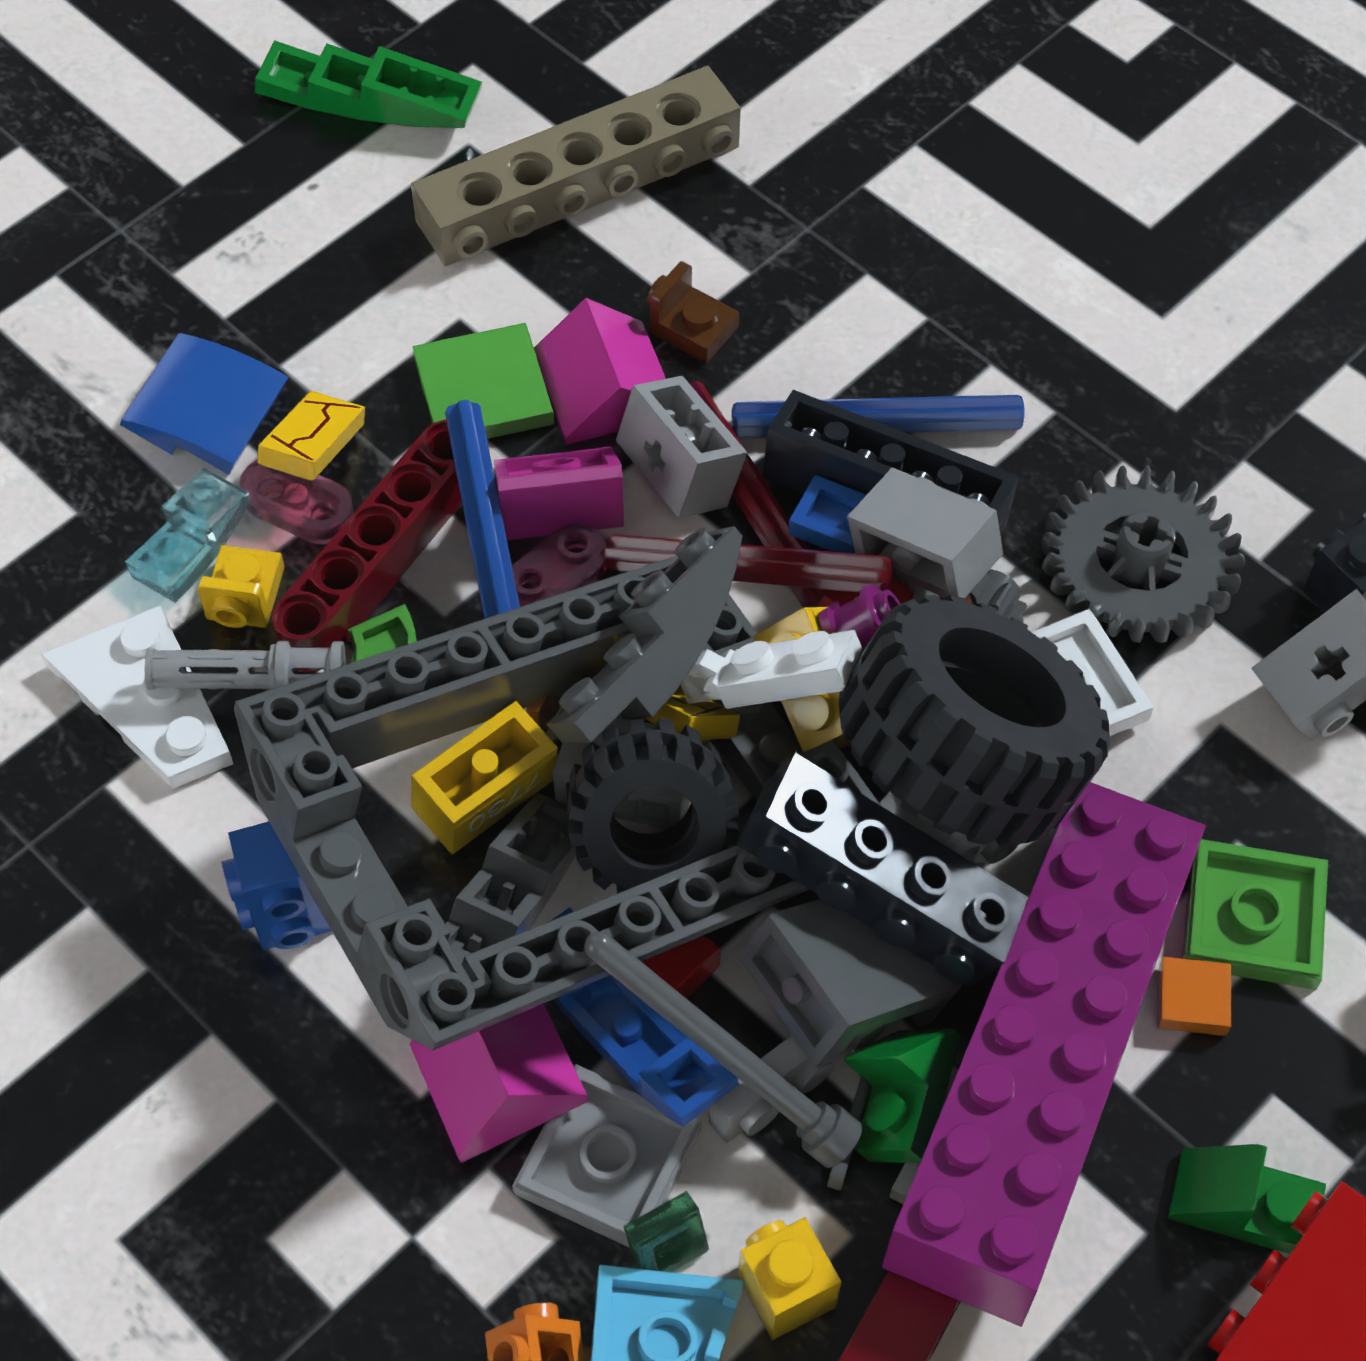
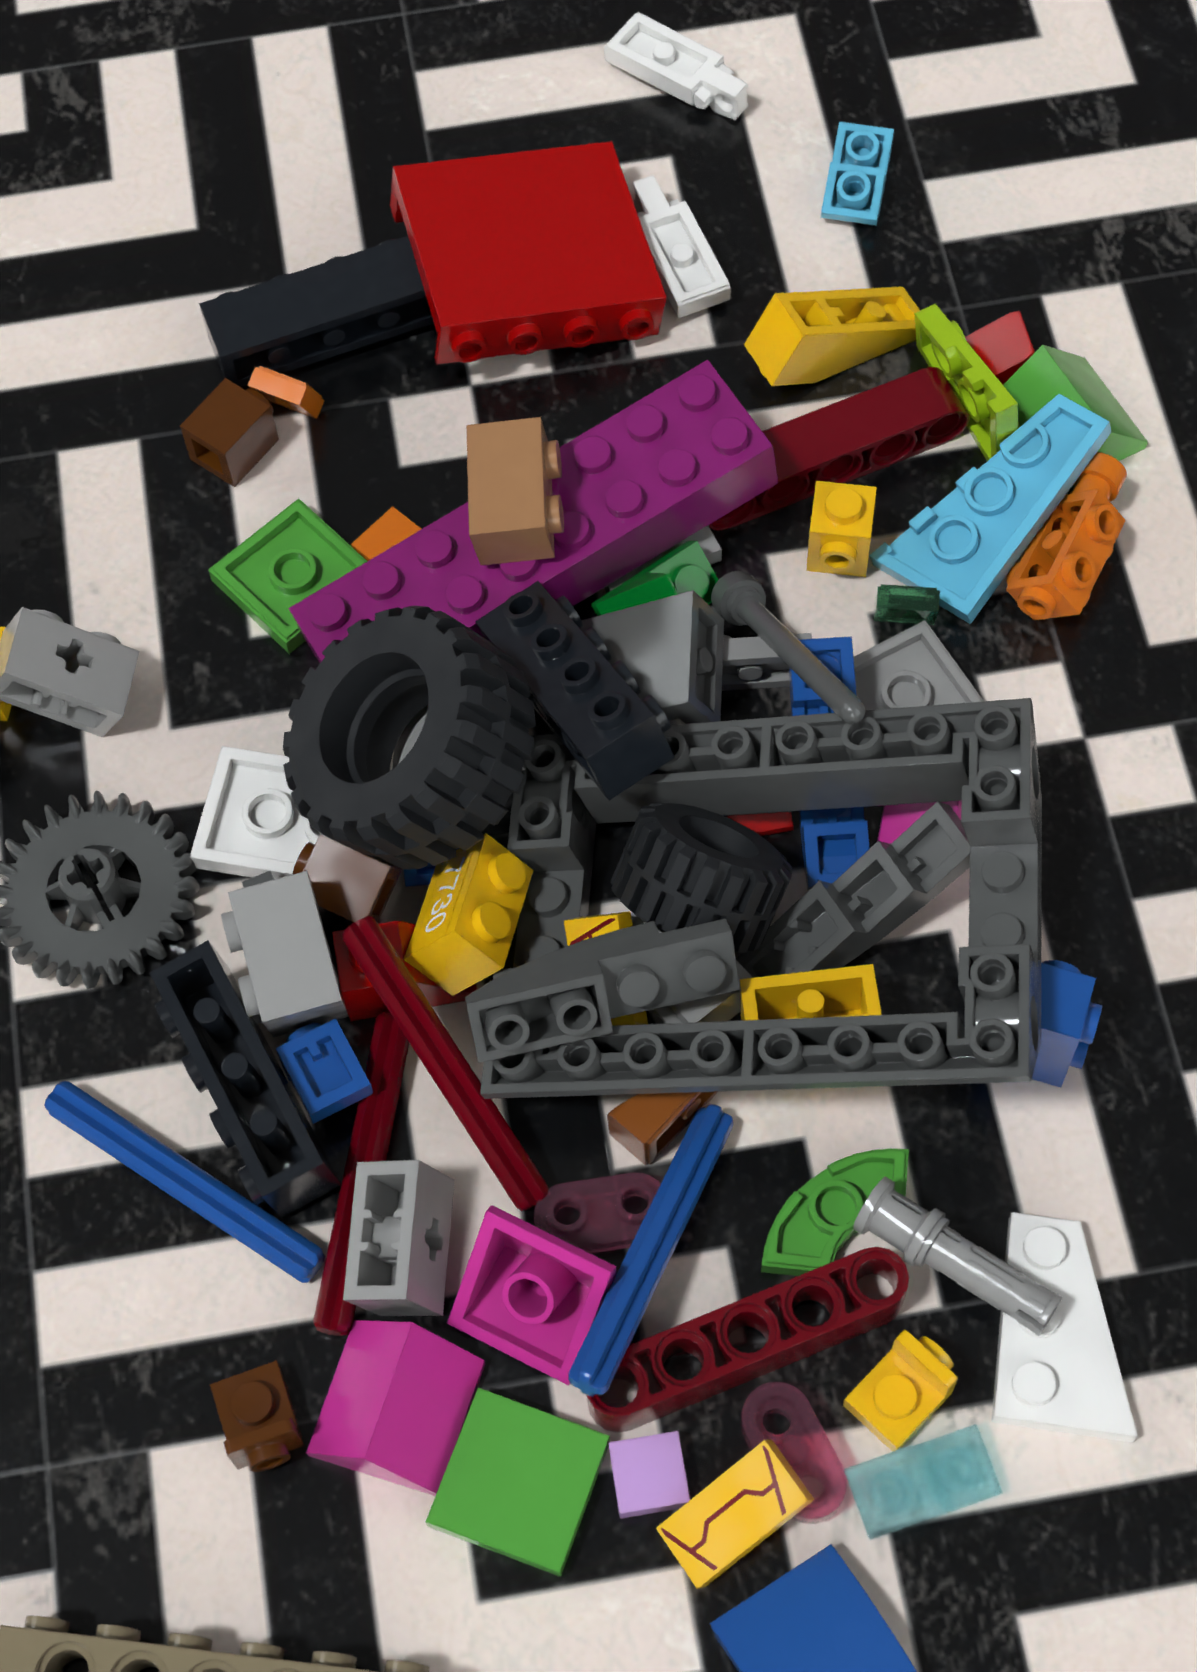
camera: 140 degrees left, 5 degrees up
(388, 434) = (649, 1474): none -> lavender tile
(774, 671) = (518, 884): white hinge -> none
(861, 614) = (409, 905): magenta brick -> none
(1092, 997) = (512, 491): none -> medium nougat brick
(1239, 1196) = (476, 395): green slope -> none

